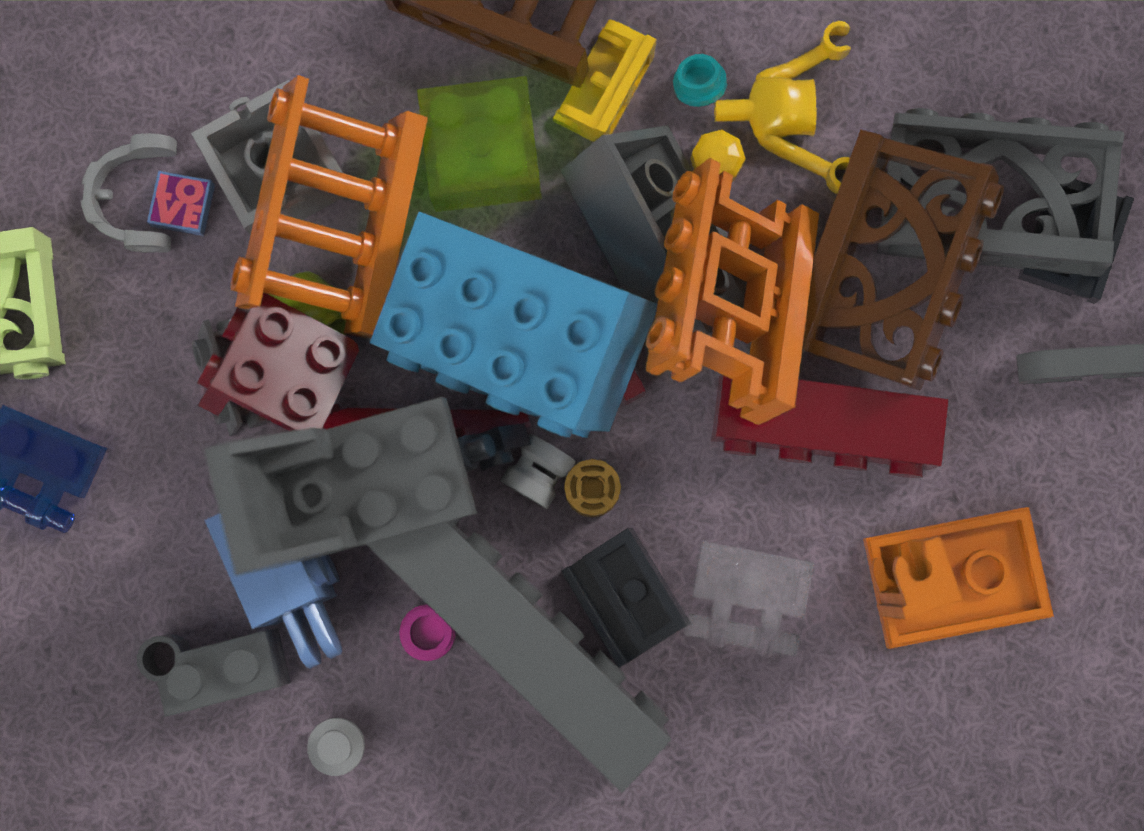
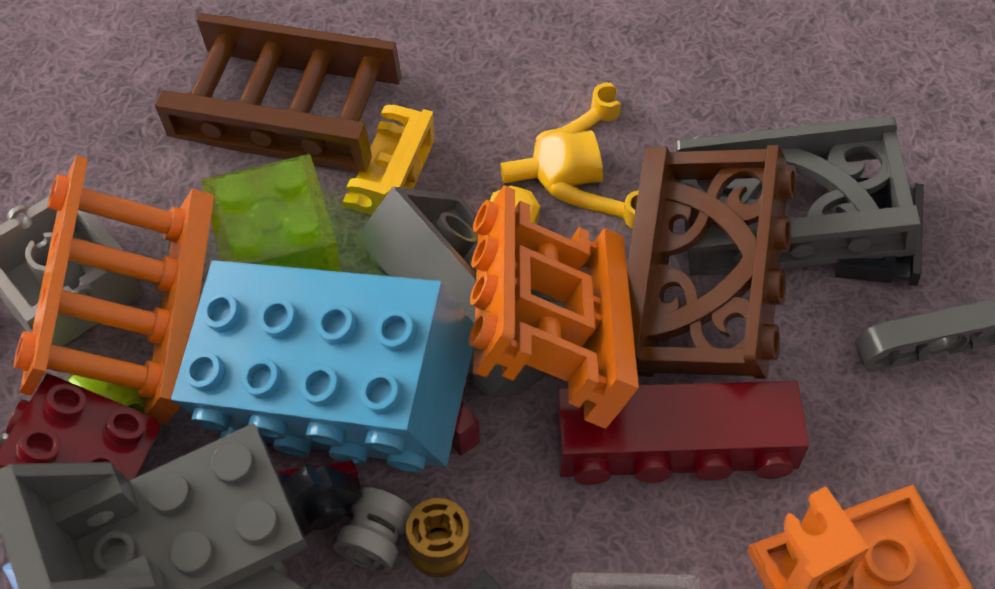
camera: 15 degrees left, 25 degrees down
(699, 80) = (482, 149): teal plate -> none

